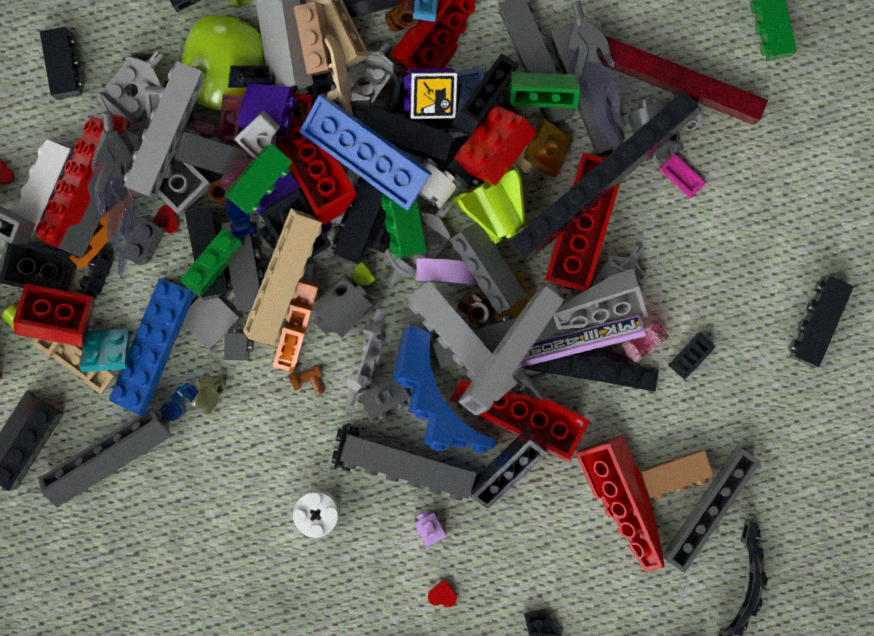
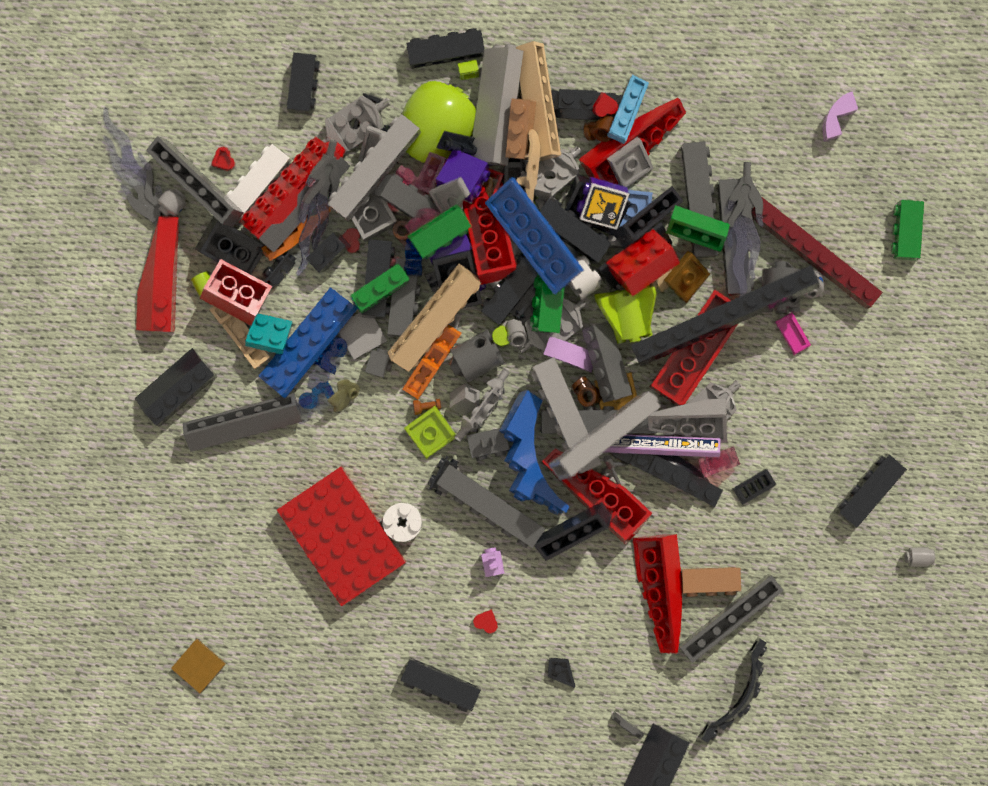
camera: 20 degrees right, 0 degrees up
(185, 343) = (336, 348): none -> clear blue leg
(253, 550) = (341, 536): none -> red brick
(317, 404) = (430, 432): none -> lime tile
(344, 356) = (464, 399): none -> light grey panel
(379, 266) = (516, 332): none -> light grey brick
(448, 41) = (630, 162): none -> light grey tile

